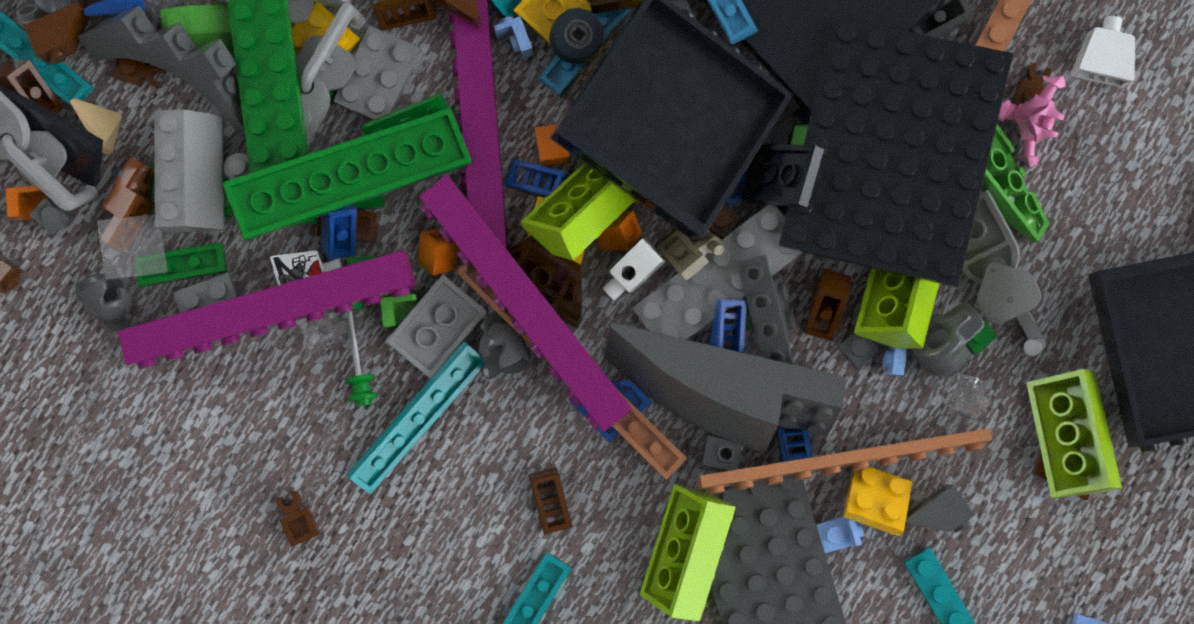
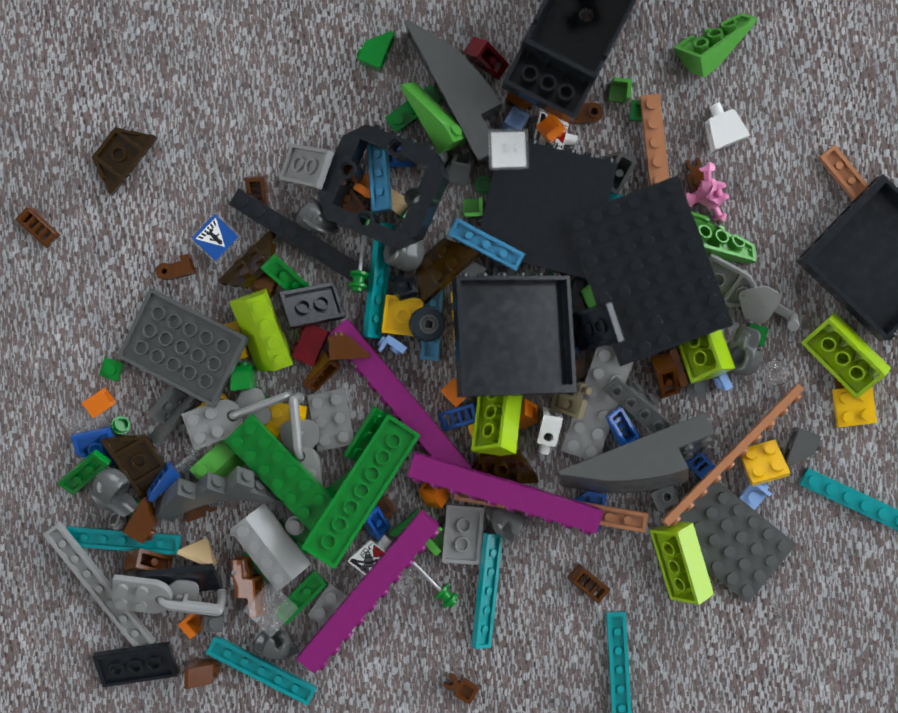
camera: 40 degrees left, 5 degrees up
(67, 321) = (261, 670): none -> teal plate
(849, 317) = (682, 374): none -> reddish brown plate
(1038, 514) = (854, 411): none -> yellow plate

